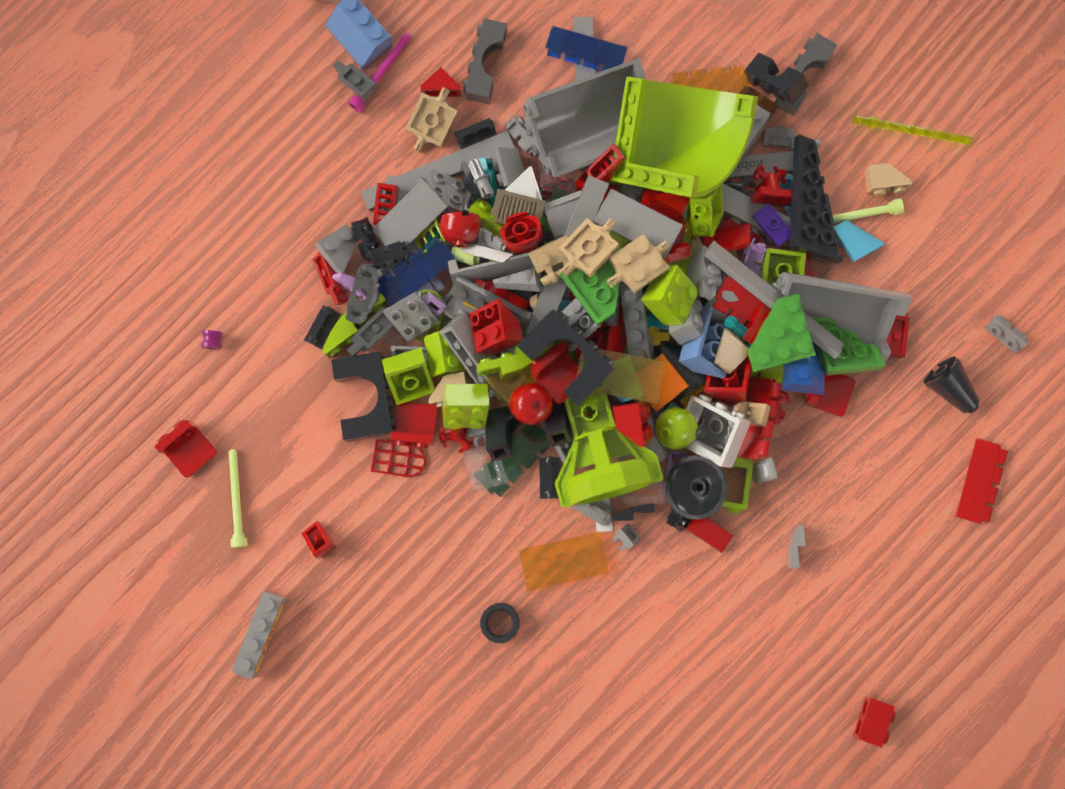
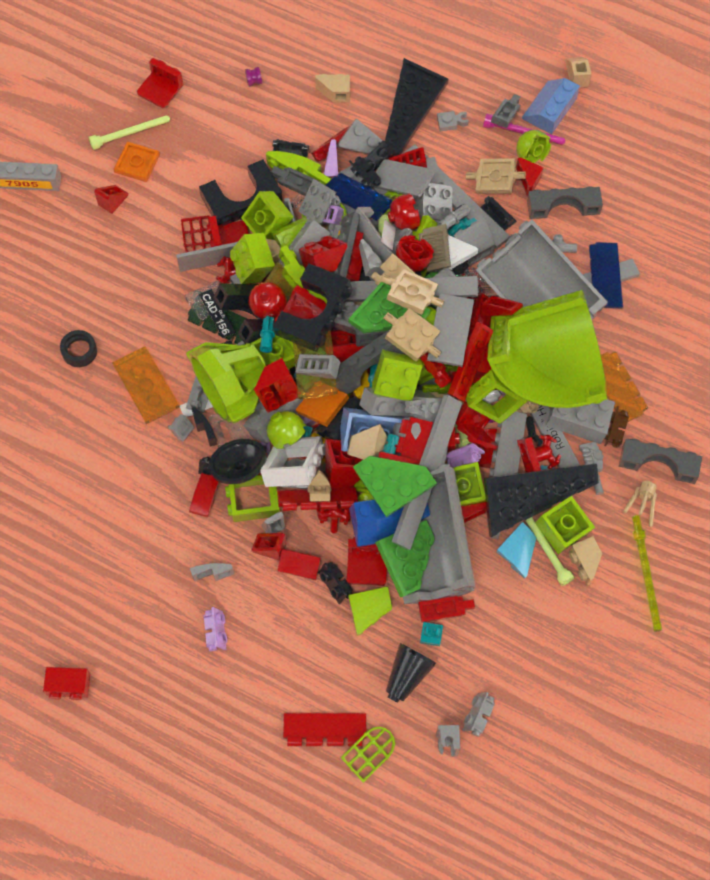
camera: 70 degrees right, 15 degrees down
(258, 254) = (334, 86): none -> tan slope
(279, 501) = (136, 161): none -> orange tile
(300, 172) = (413, 100): none -> black wing
(341, 145) = (449, 120): none -> light grey plate
(357, 309) = (311, 163): dark grey piece -> none
(407, 69) = (533, 146): none -> lime cylinder
(433, 465) = (203, 257): none -> light grey piece
(518, 461) = (217, 315): none -> black sticker
(535, 82) = (565, 248): none -> light grey arm
(572, 415) = (267, 334): none -> teal axle
(644, 358) = (329, 369): none -> light grey slope
(655, 199) = (472, 358): none -> red plate
(772, 225) = (503, 462): dark purple plate -> none
(785, 482) = (269, 545): none -> red slope
(786, 86) = (641, 430): black arch -> none
(810, 458) = (299, 564): none -> red slope
(833, 98) = (646, 493): none -> tan plant
(848, 425) = (329, 575): none -> black hinge
(849, 188) = (564, 525): none -> lime brick
(865, 560) = (215, 620): none -> lavender hinge
(874, 402) = (369, 607): none -> lime slope
(916, 351) = (431, 634): none -> teal tile
(1023, 450) = (368, 760): none -> lime window
(1030, 365) = (449, 736): none -> light grey hinge

